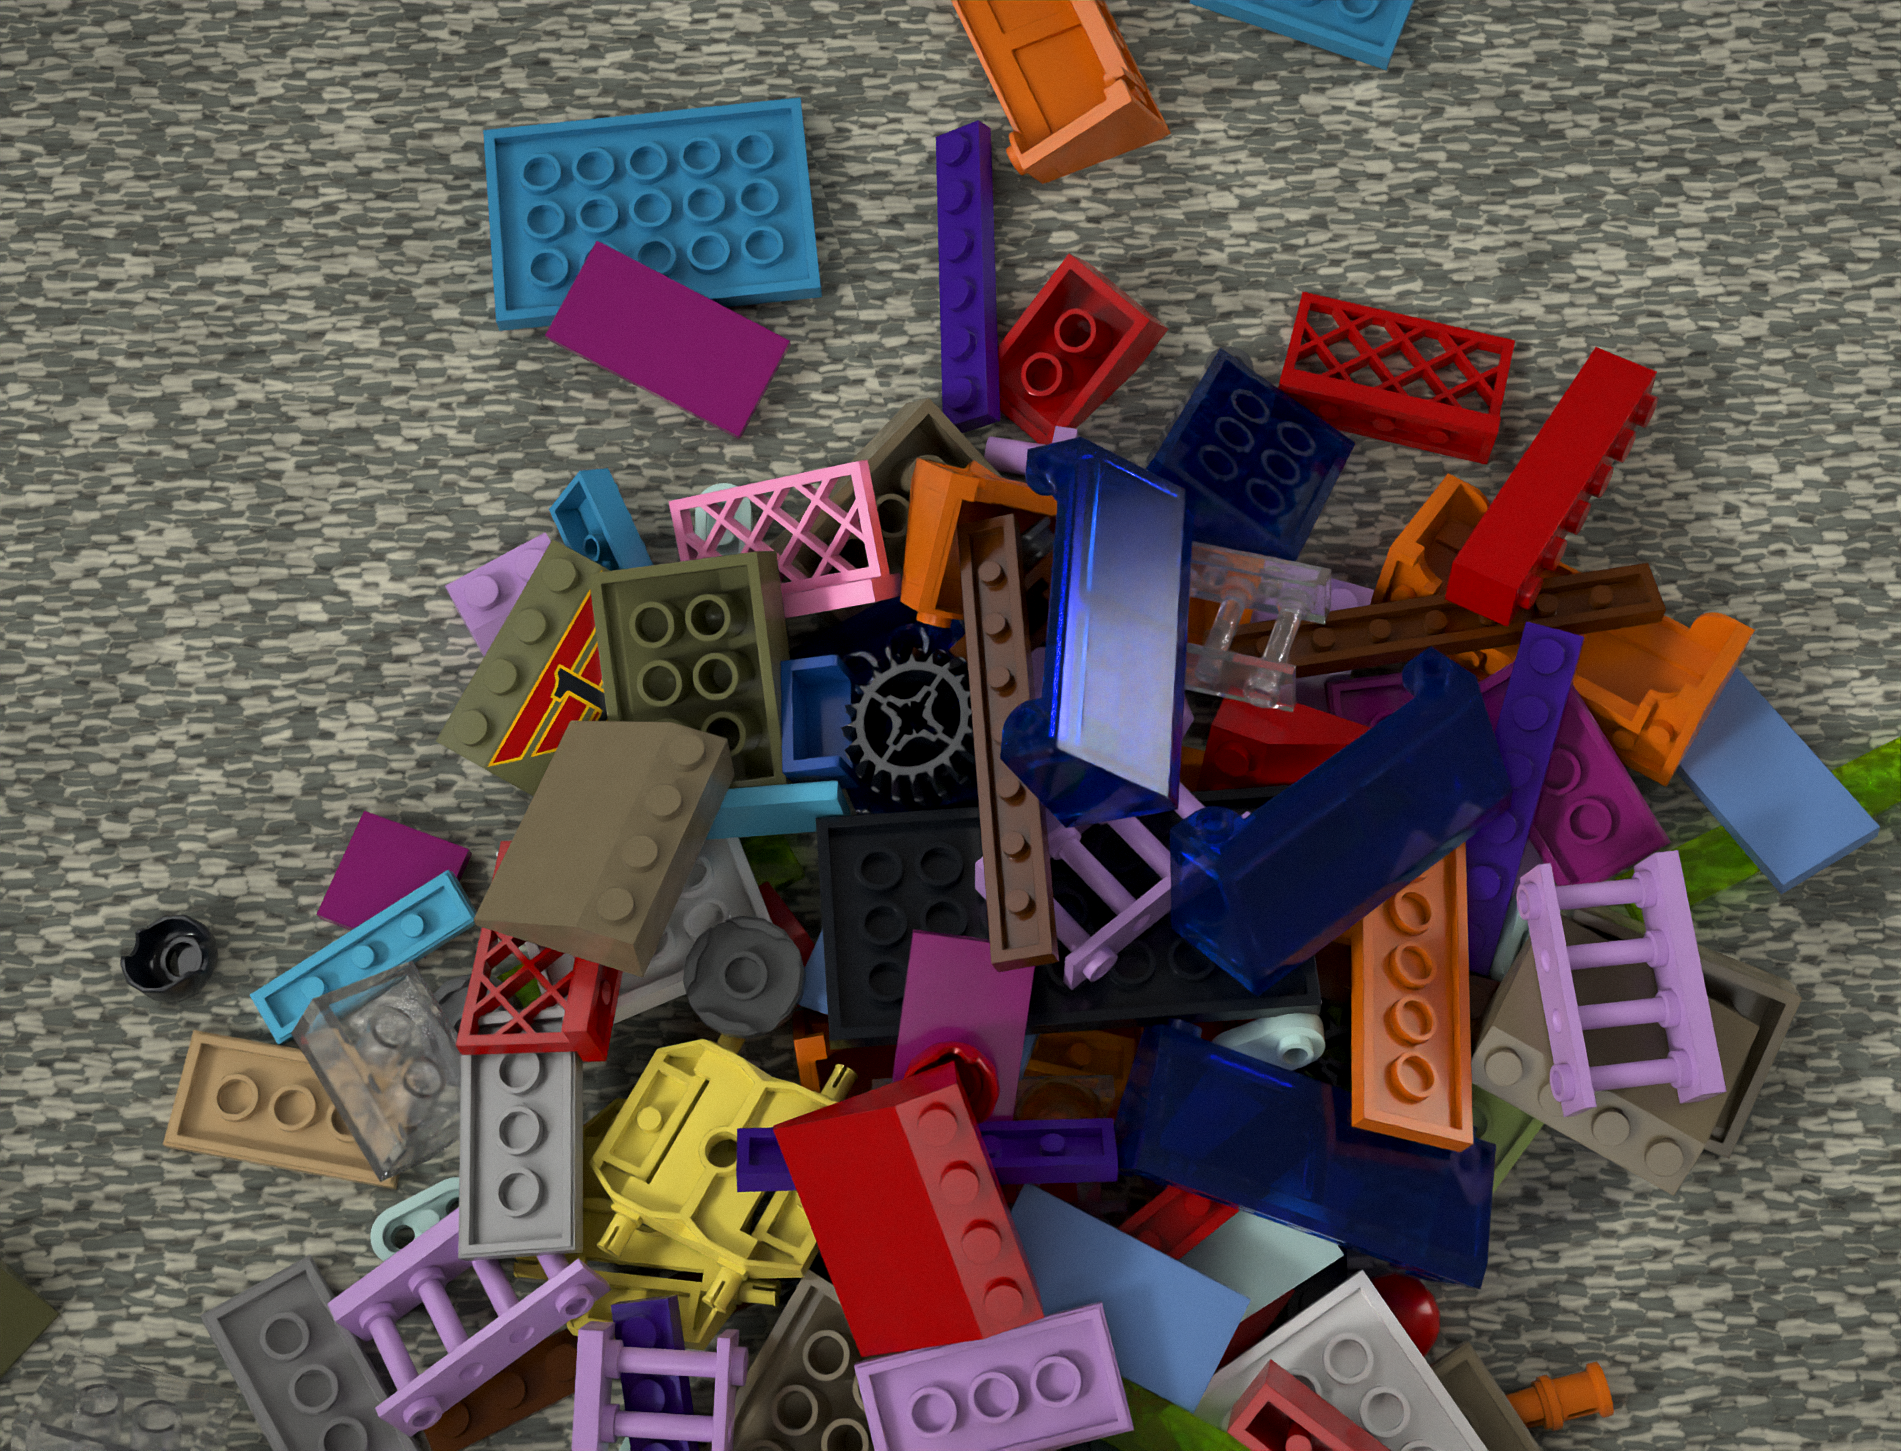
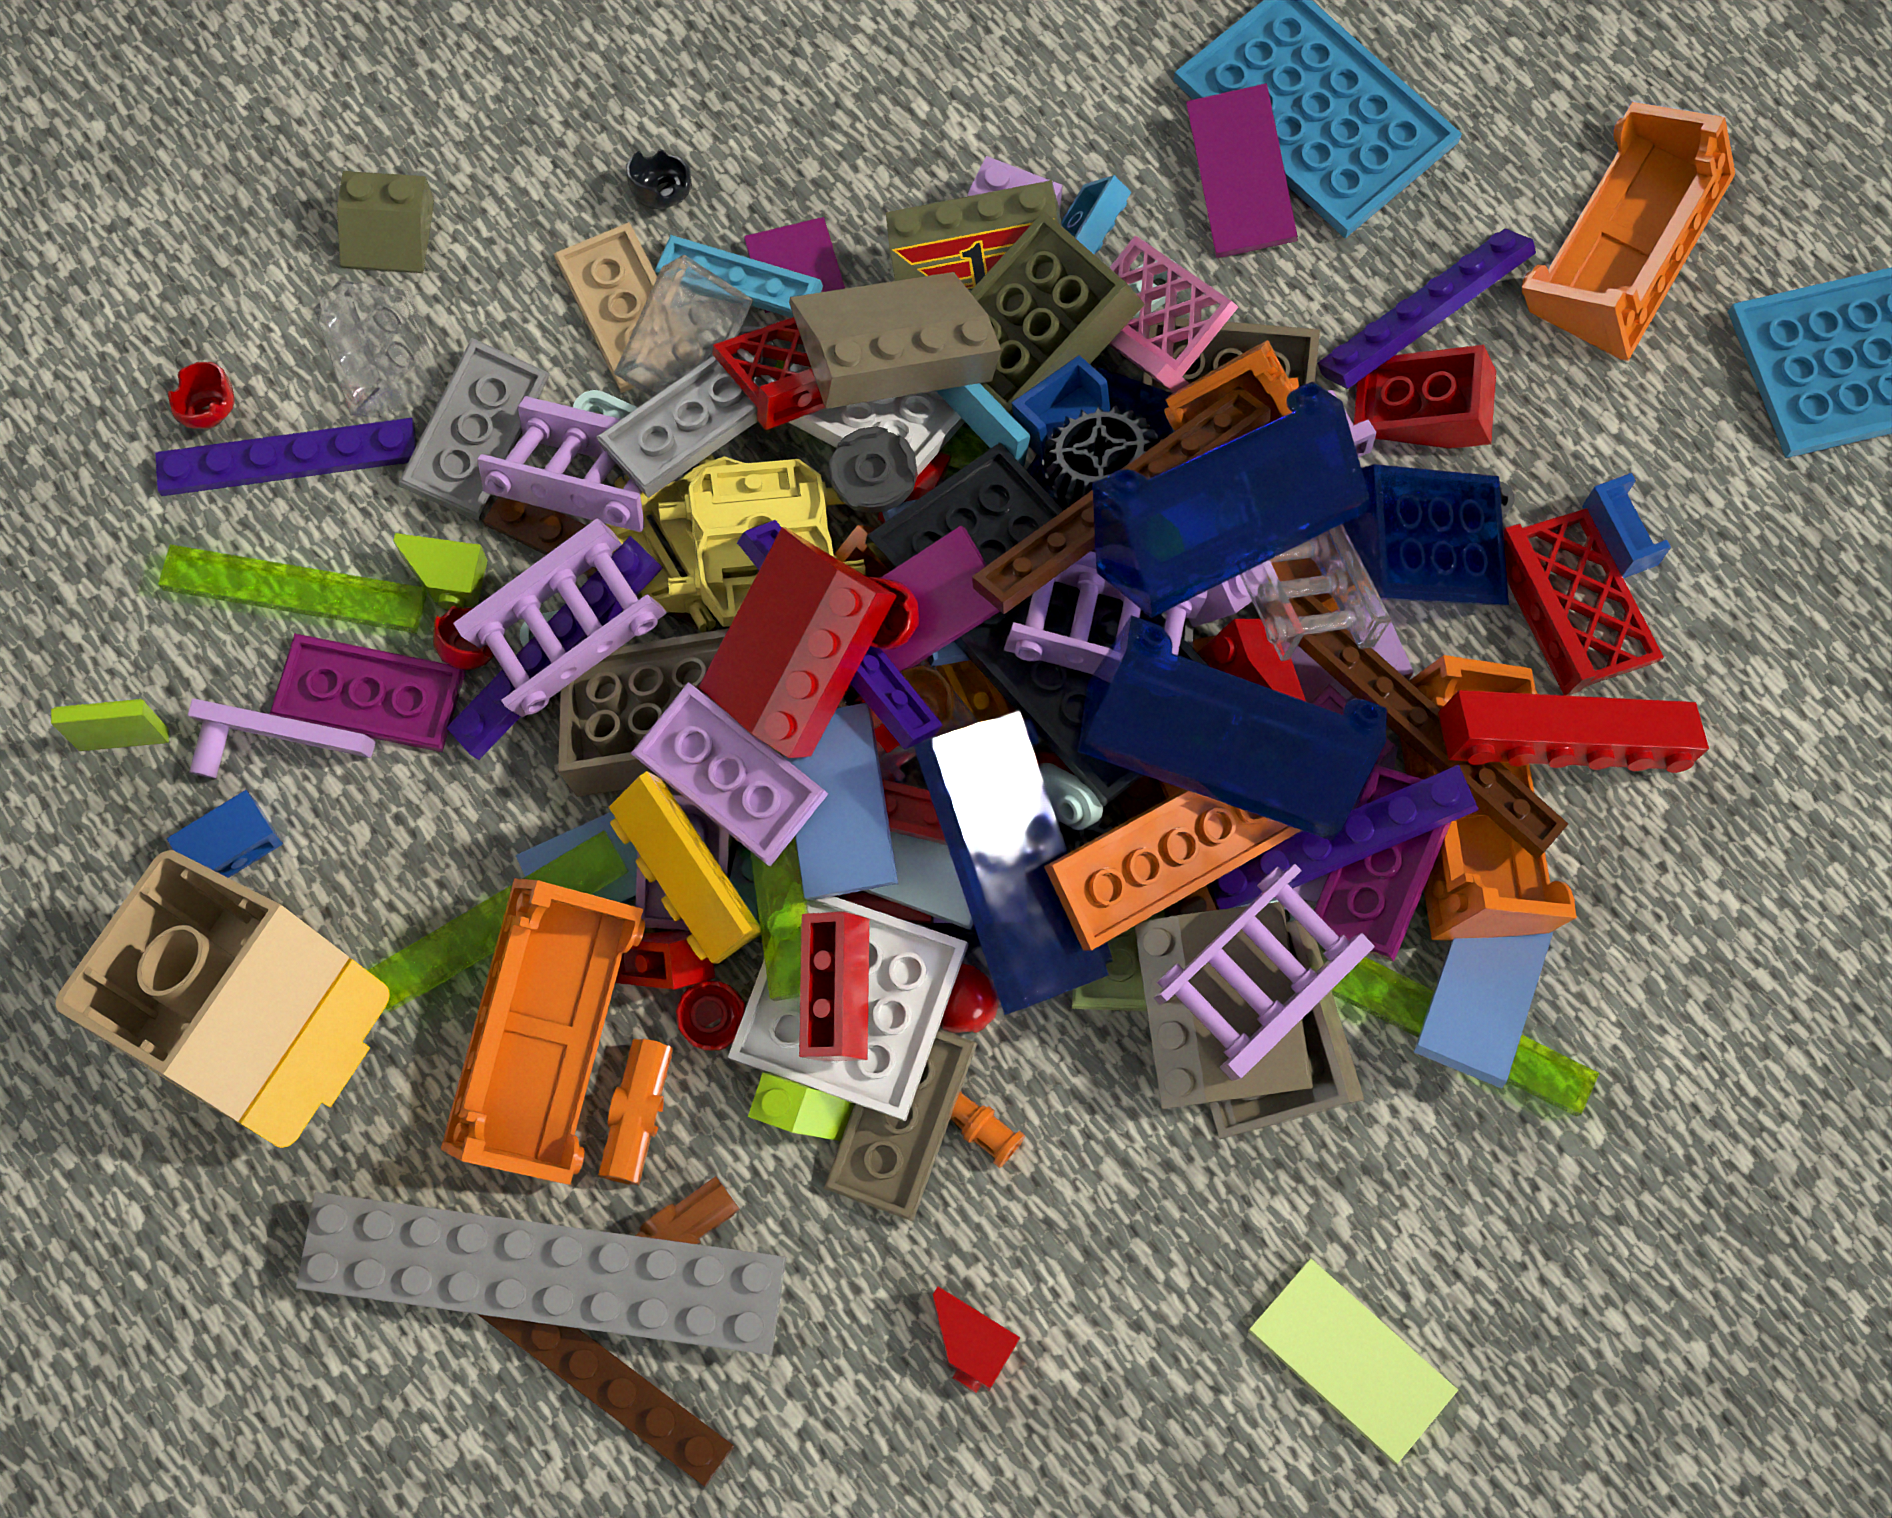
camera: 50 degrees right, 0 degrees up
(1354, 274) = (1623, 528): none -> blue panel

